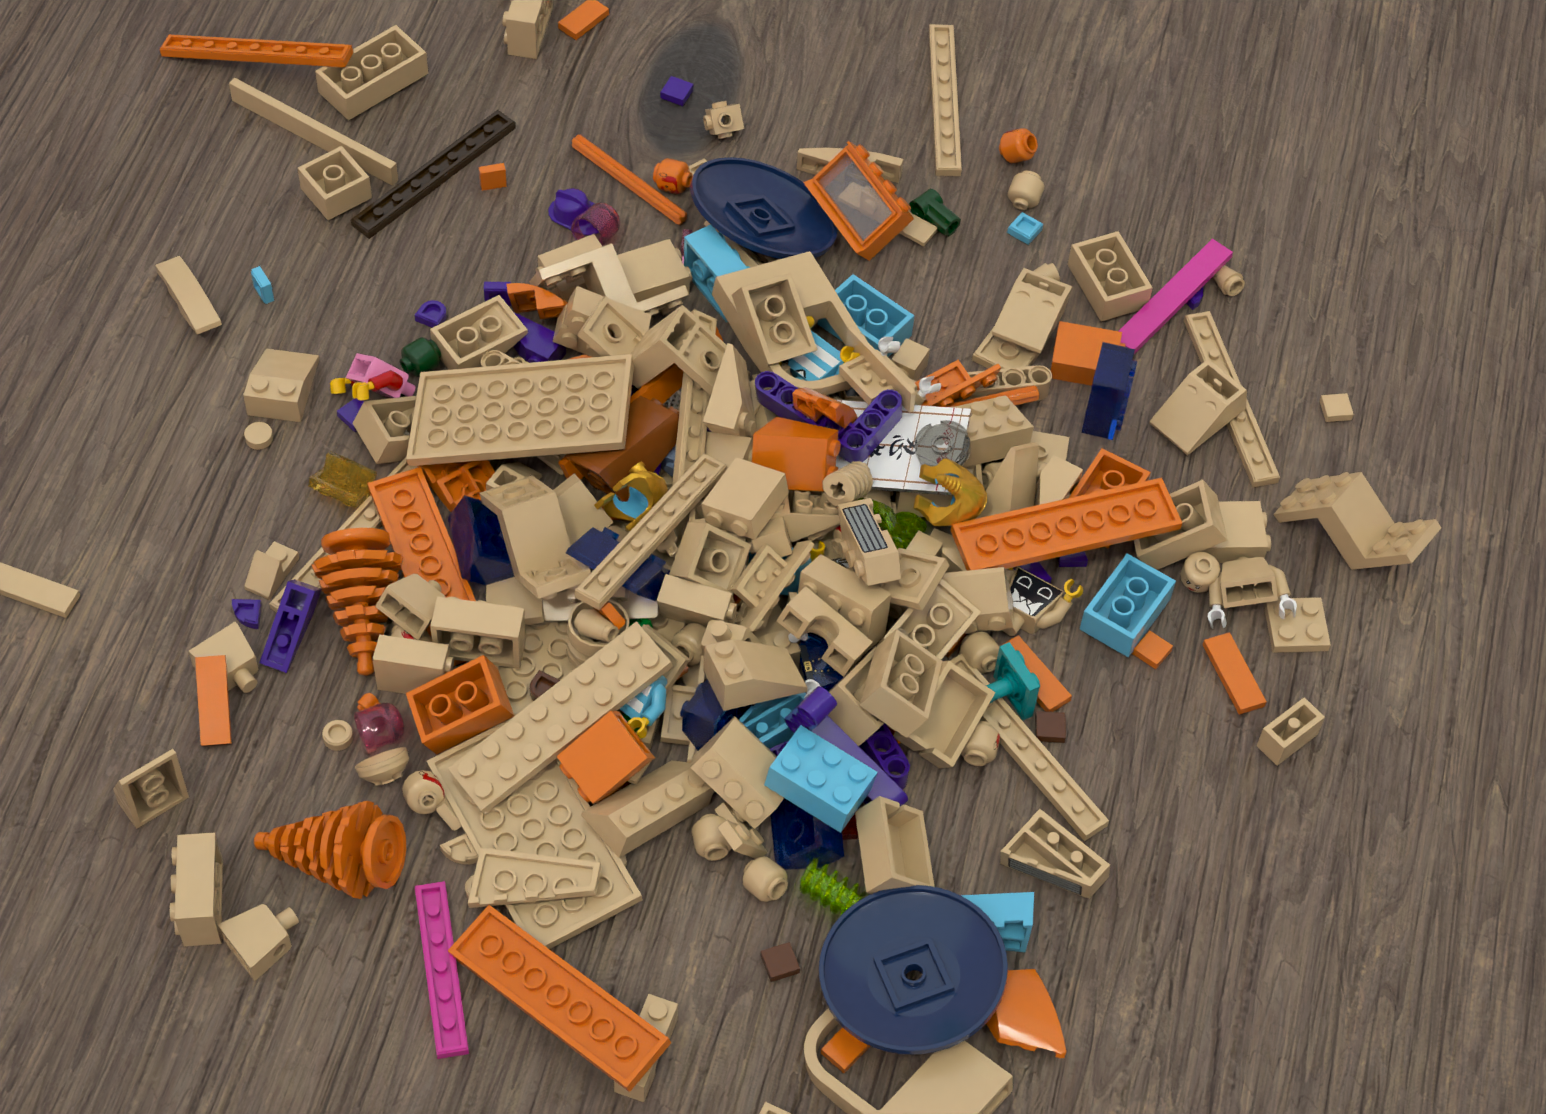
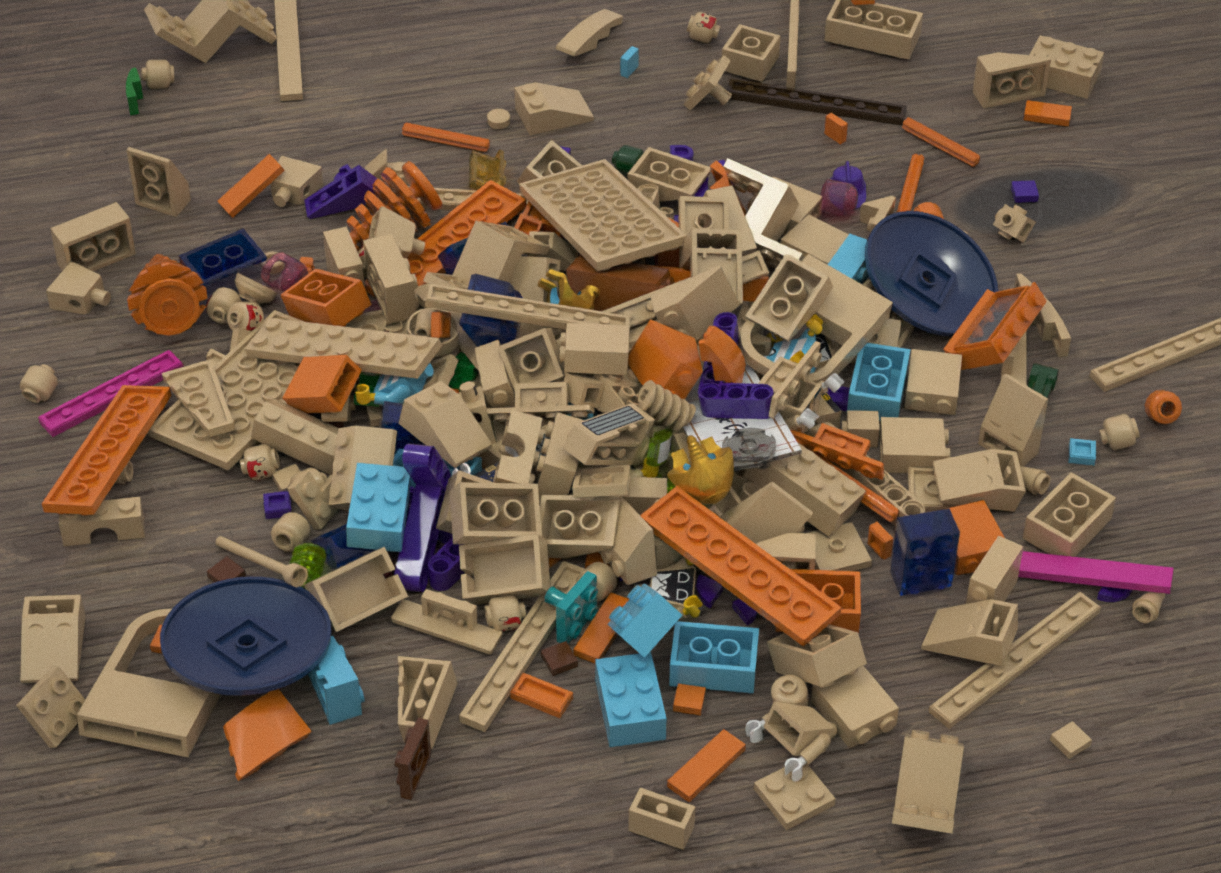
camera: 65 degrees right, 10 degrees down
(253, 494) = (445, 137): none -> orange axle
(258, 200) = (703, 27): none -> tan head
(326, 772) = (223, 257): none -> clear blue slope
(356, 238) = (708, 83): none -> tan plate
(375, 375) = (583, 138): torso -> none
(388, 800) = (219, 304): none -> tan head
(388, 1033) = (38, 383): none -> tan head
(565, 112) = (941, 142): none -> orange axle
(642, 207) = (876, 210): none -> tan slope
(648, 866) = (260, 462): none -> tan head
(680, 852) = (283, 476): none -> tan tile
(709, 877) = (276, 504): none -> dark purple tile
(851, 895) = (292, 573): none -> tan piece
(889, 275) = (933, 382): none -> tan brick
(953, 334) = (912, 443): none -> tan brick
(963, 793) = (447, 620): none -> tan bracket
(989, 250) = (1014, 420): none -> tan slope
(1052, 419) = (880, 540): none -> orange tile
(1080, 631) = (643, 619): none -> medium azure brick
(1088, 759) = (541, 695): none -> orange tile
(1130, 893) = (413, 758): none -> reddish brown plate
(1138, 692) = (630, 699): none -> medium azure brick
(1159, 363) = (996, 572): none -> tan brick

